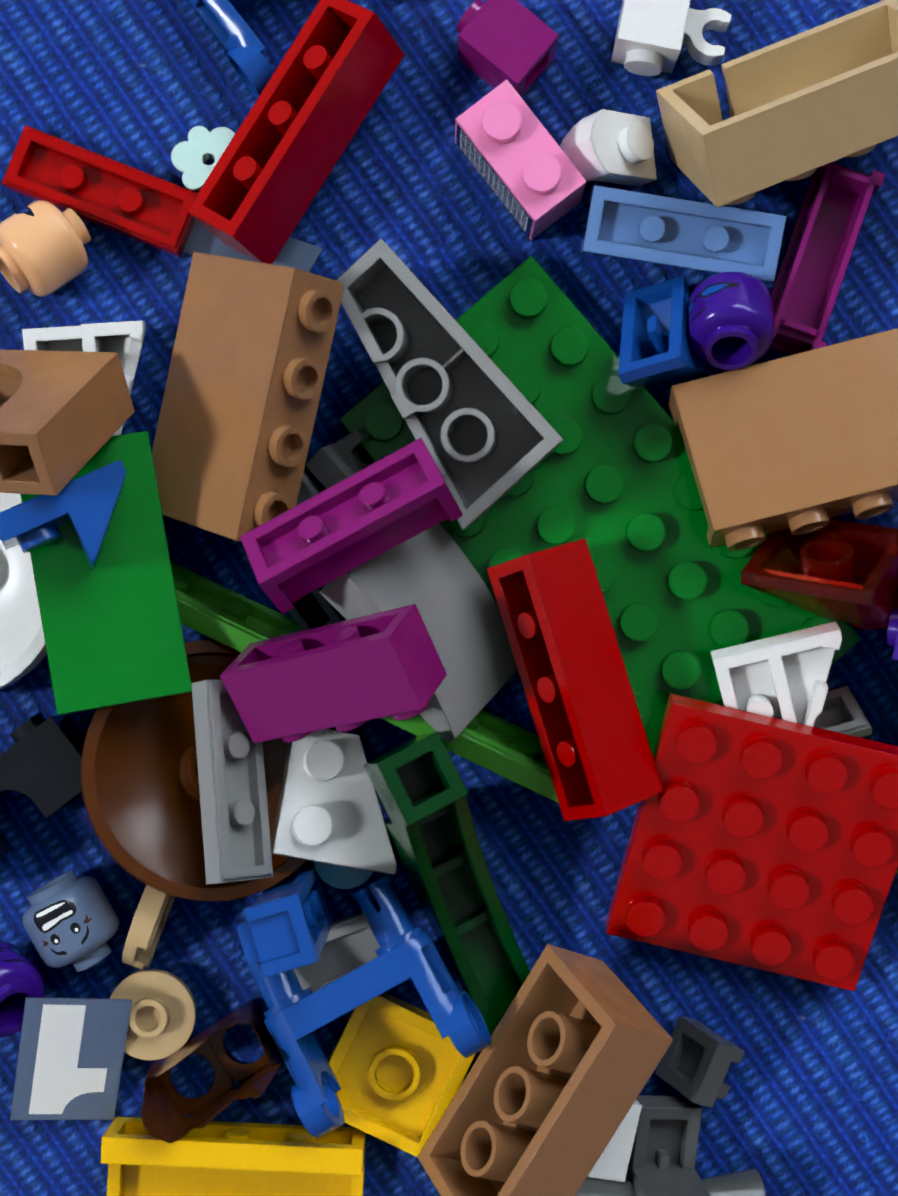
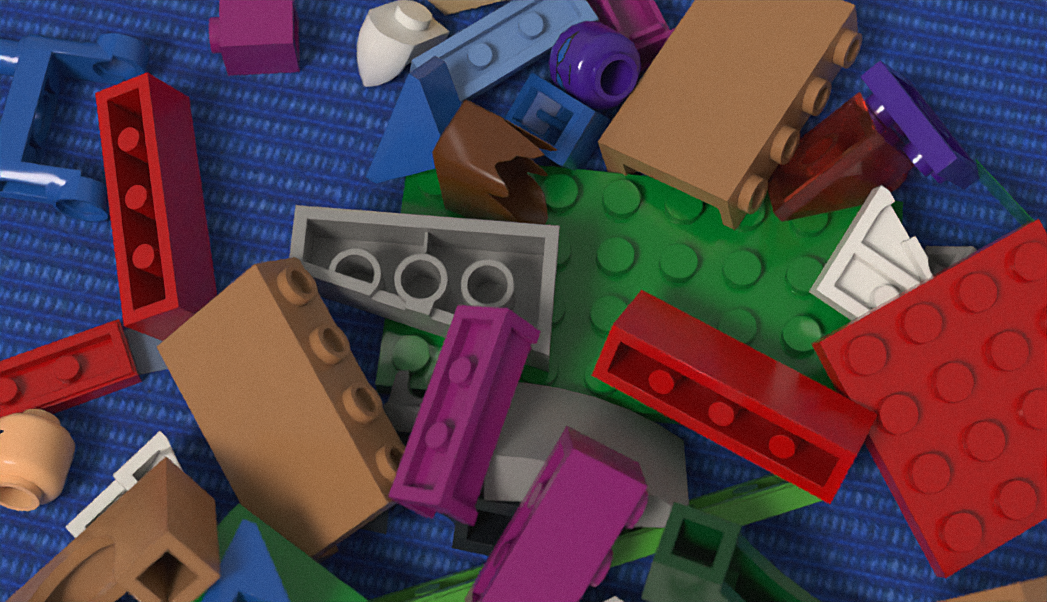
camera: 40 degrees left, 20 degrees down
(191, 155) = (88, 290): light aqua plant -> none
(519, 159) = (335, 93): bright pink brick -> none
(553, 254) = (416, 123): none -> blue slope
(560, 340) = (485, 168): none -> reddish brown piece

